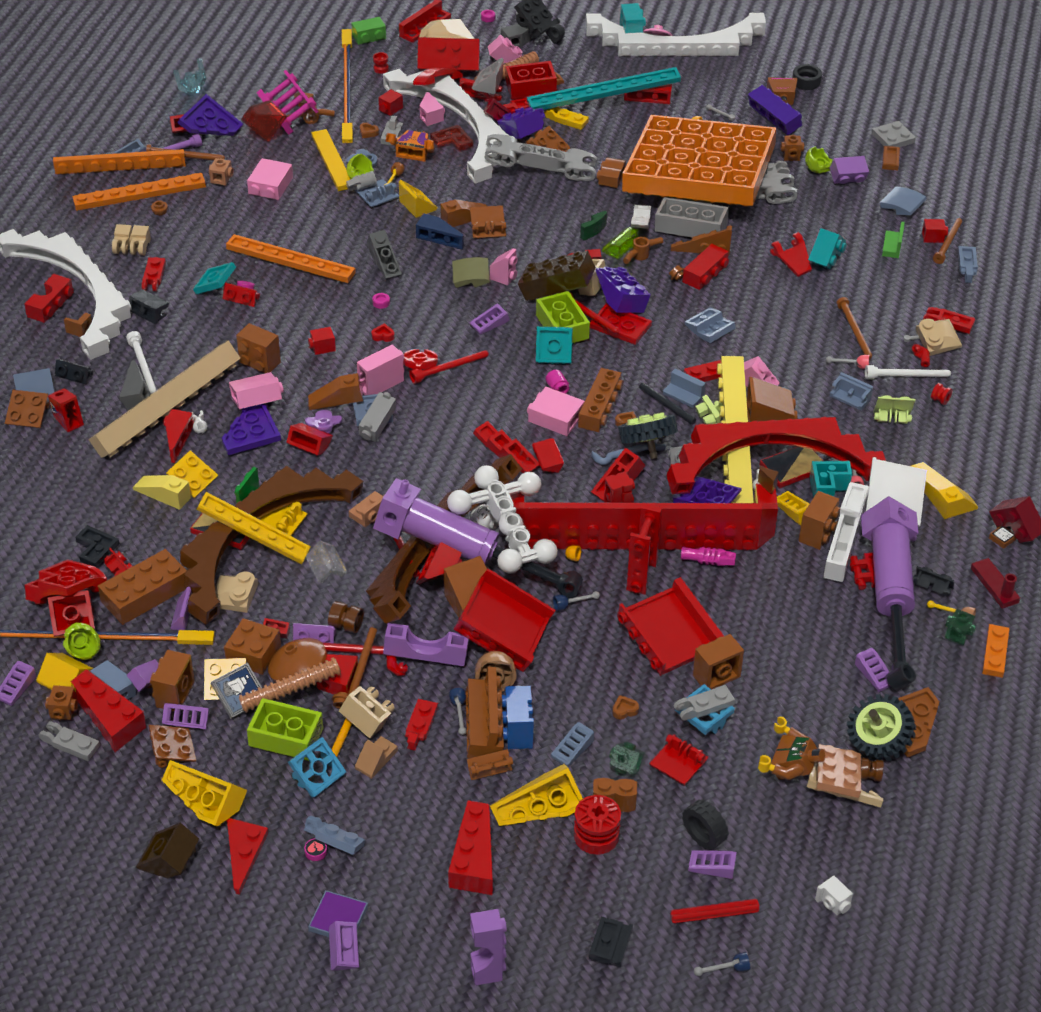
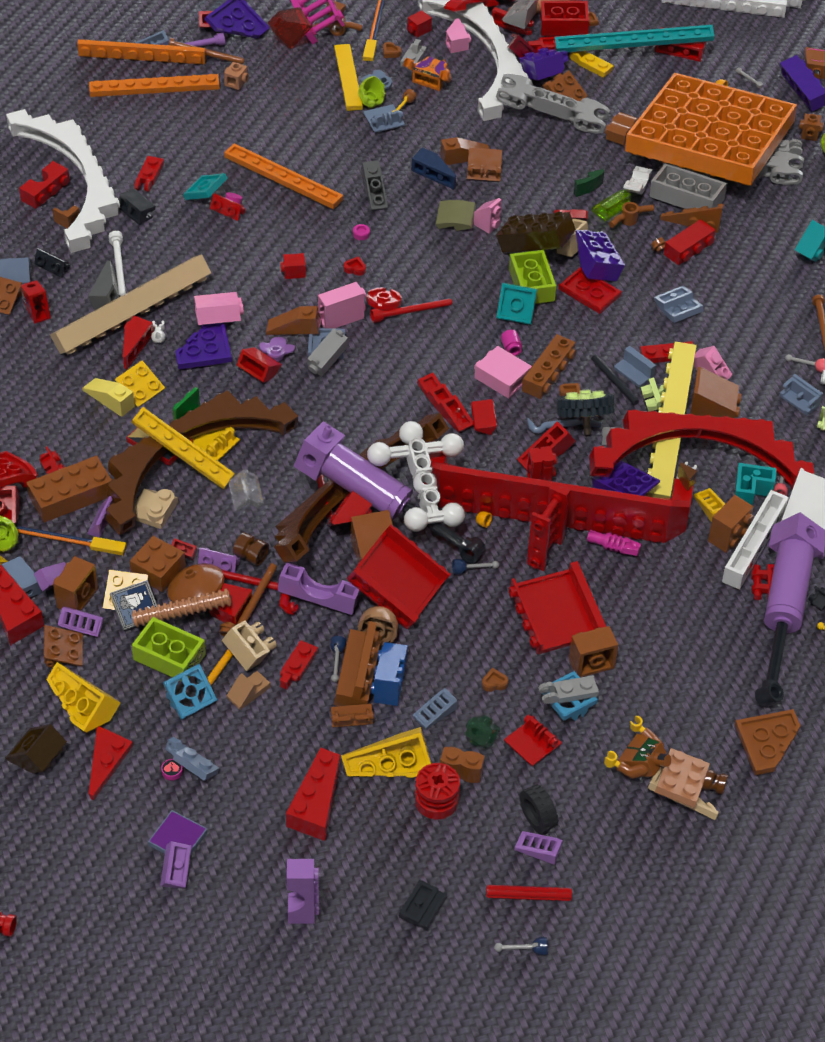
camera: 10 degrees right, 5 degrees up
(98, 545) = (37, 440): black plate -> none
(136, 238) = (138, 134): tan legs -> none
(159, 208) = (169, 105): dark orange plate -> none
(258, 348) = (229, 266): dark orange brick -> none
(270, 179) = (282, 89): bright pink brick -> none
(361, 181) = (370, 105): light grey hinge -> none
(367, 509) = (293, 444): nougat bracket -> none
(415, 200) = (419, 131): yellow slope -> none
(452, 134) = (472, 66): clear red plate -> none
(483, 516) = (402, 472): white head -> none
(496, 310) = (459, 263): medium lavender slope -> none
(597, 318) = (564, 278): red piece -> none
(791, 464) = (719, 462): tile -> none
(795, 257) = (784, 244): red flag -> none
(834, 895) = (645, 898): white brick -> none
(853, 500) = (768, 509): white tile -> none
(871, 658) = (742, 671): medium lavender slope -> none
(881, 727) = (734, 742): wheel -> none

